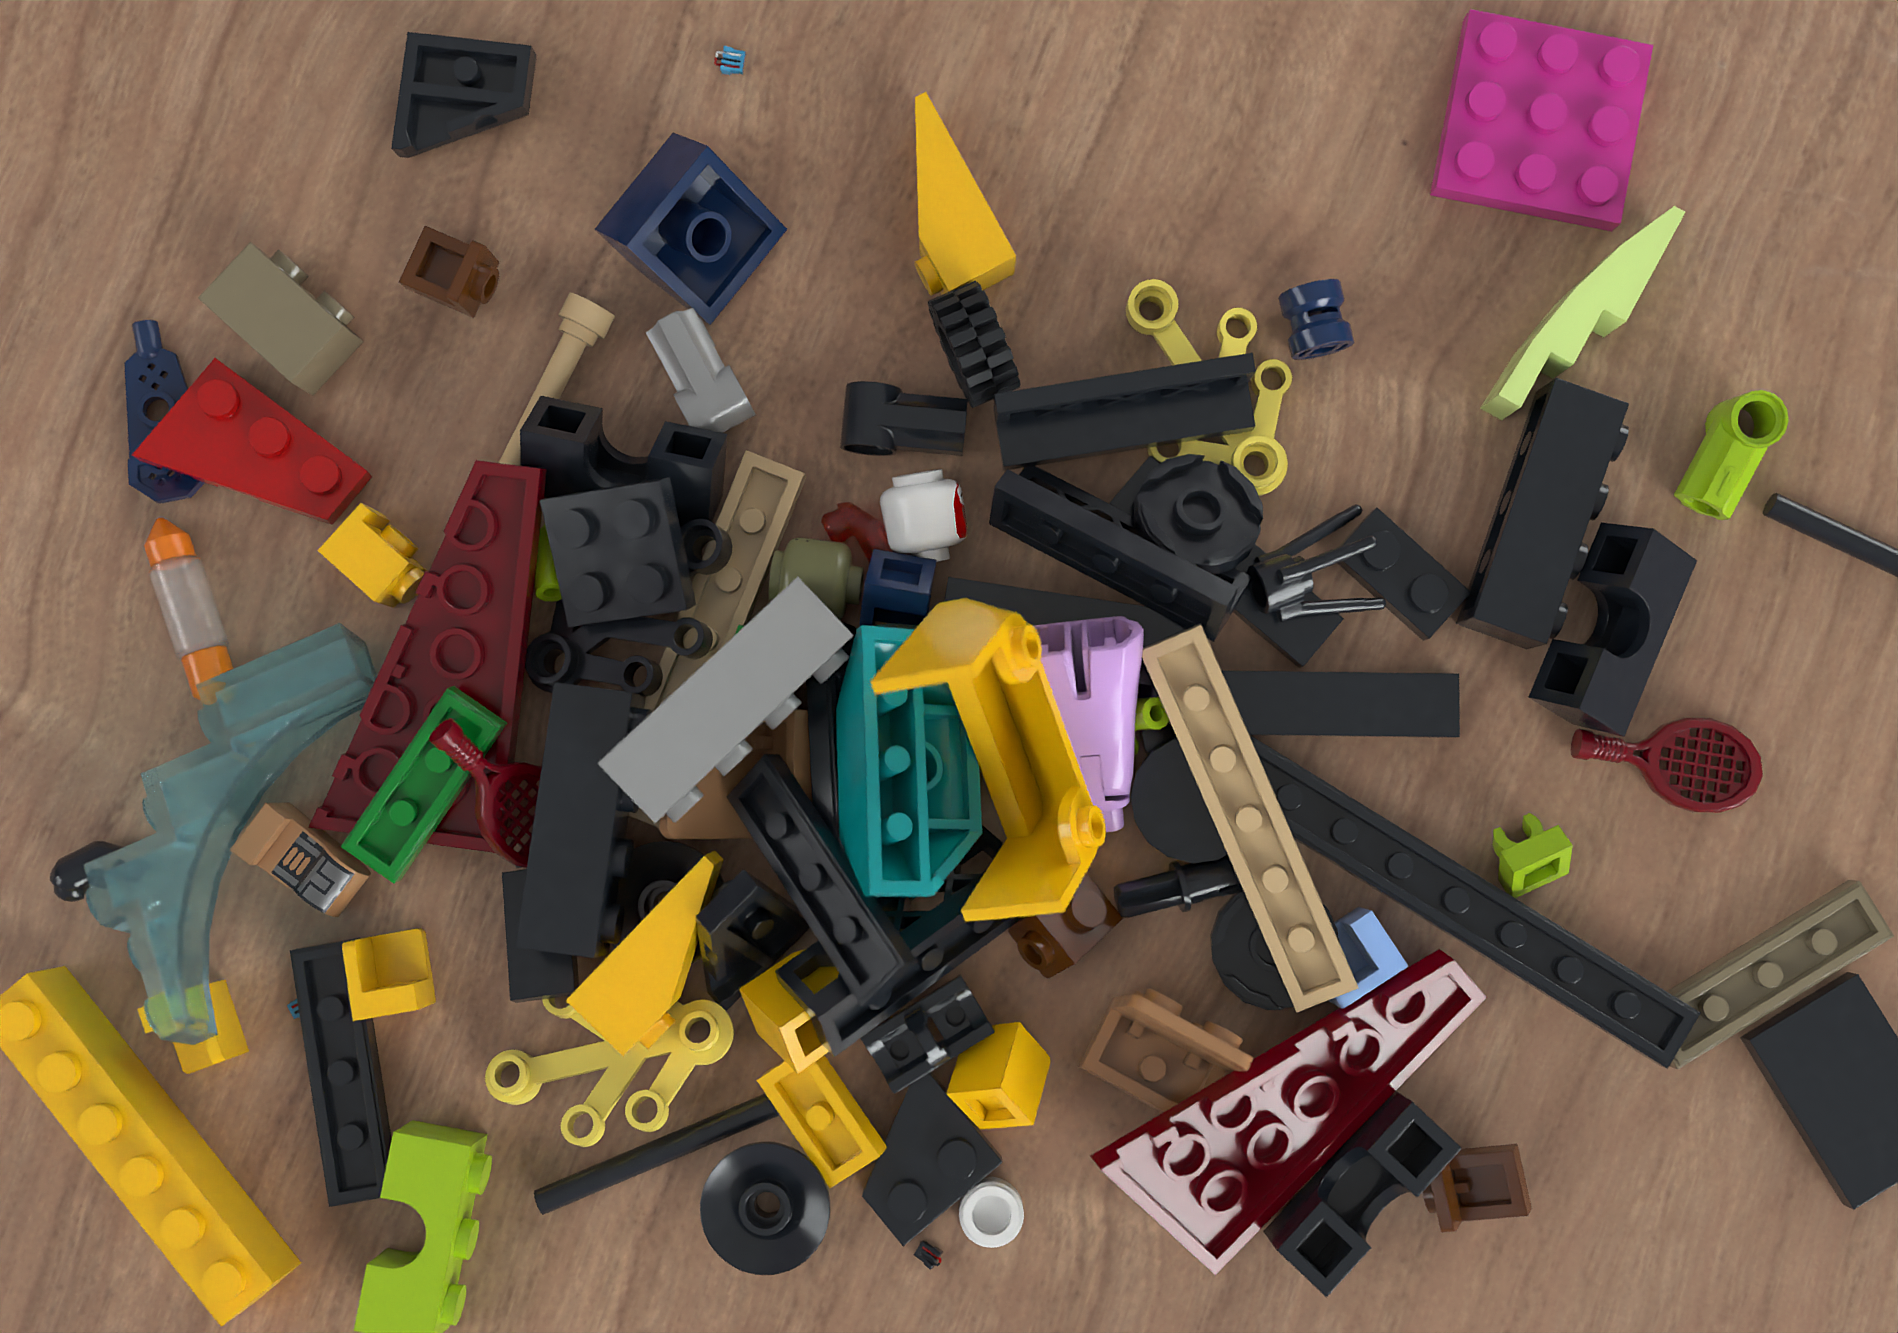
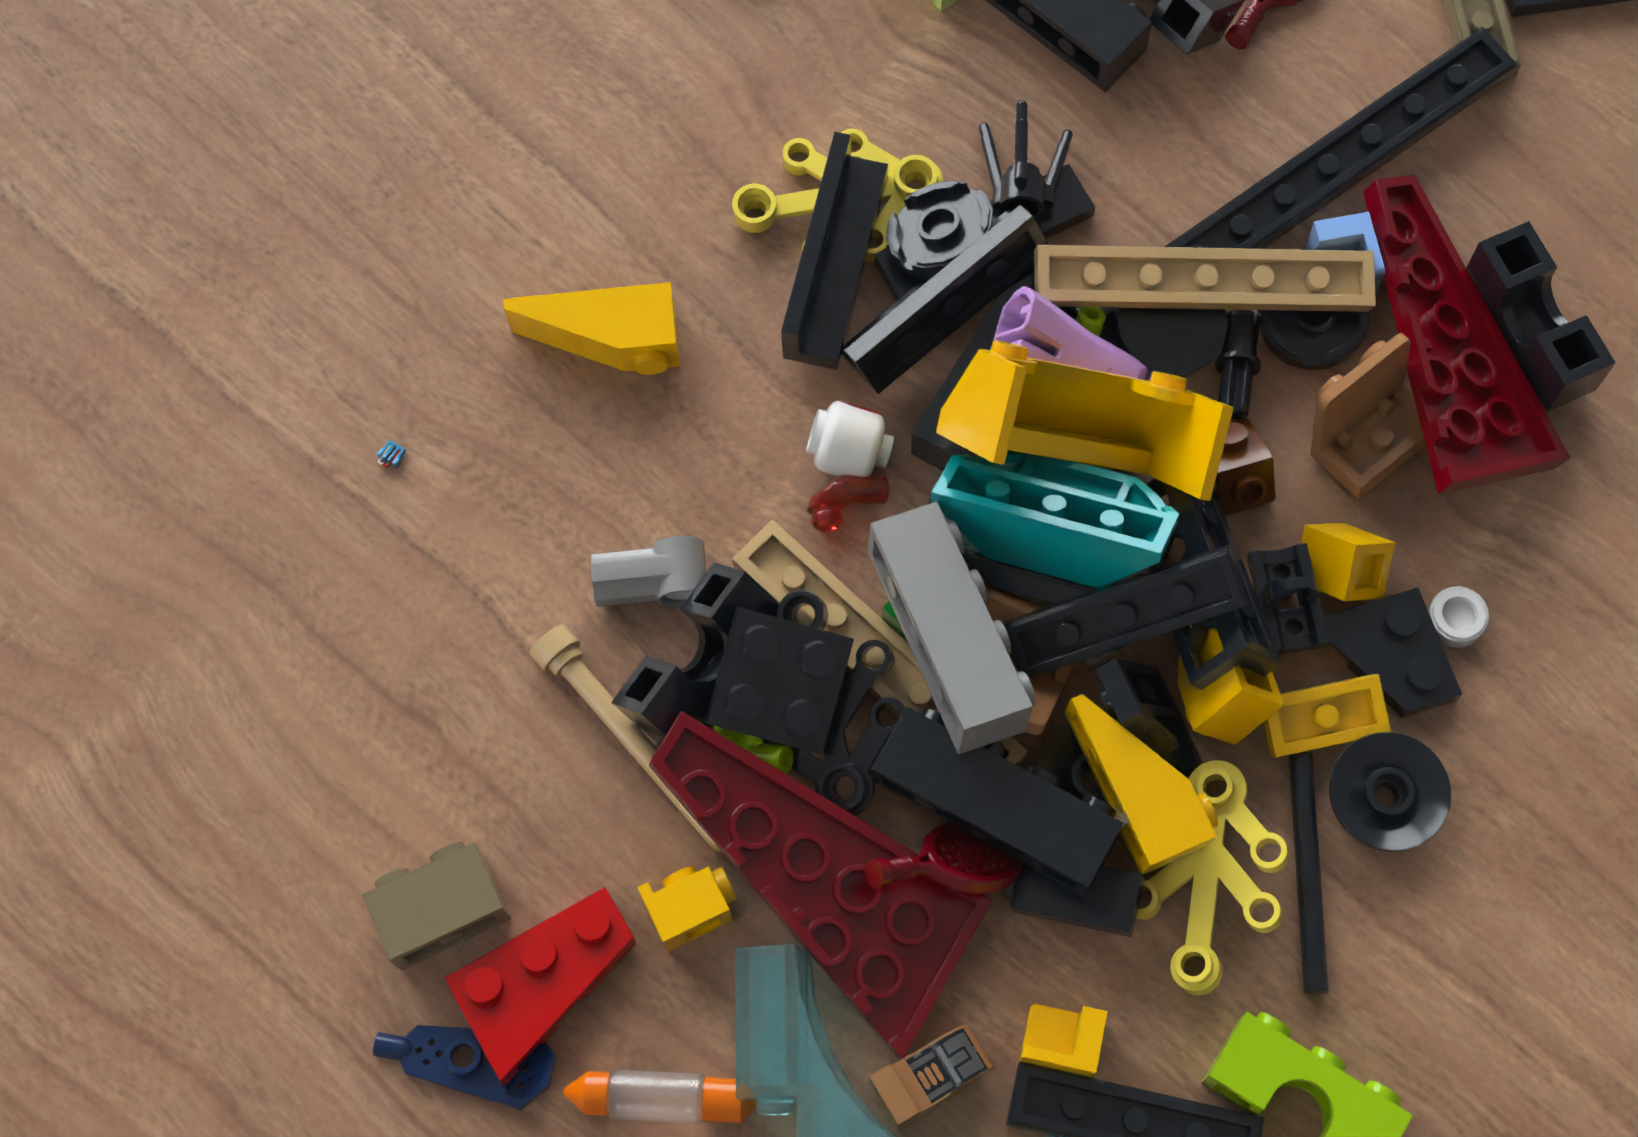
camera: 65 degrees left, 15 degrees down
(419, 789) = (911, 938): green tile -> none
(451, 271) = (465, 743): reddish brown bracket -> none
(459, 89) = (307, 678): black wing -> none
(691, 226) = (518, 531): dark blue slope -> none
(823, 568) = (849, 543): olive head -> none
(884, 420) = (756, 441): black piece -> none
(897, 589) = (903, 476): dark blue panel -> none
(928, 1254) = (1476, 682): black piece -> none
(974, 343) = (727, 342): black tyre -> none
(1316, 319) = (820, 93): dark blue wheel -> none
(1347, 703) = (1142, 177): black tile -> none
(1404, 575) = (1062, 104): black plate -> none
(1479, 1186) = (1567, 232): reddish brown bracket -> none
(1533, 861) = (1317, 101): lime tile -> none

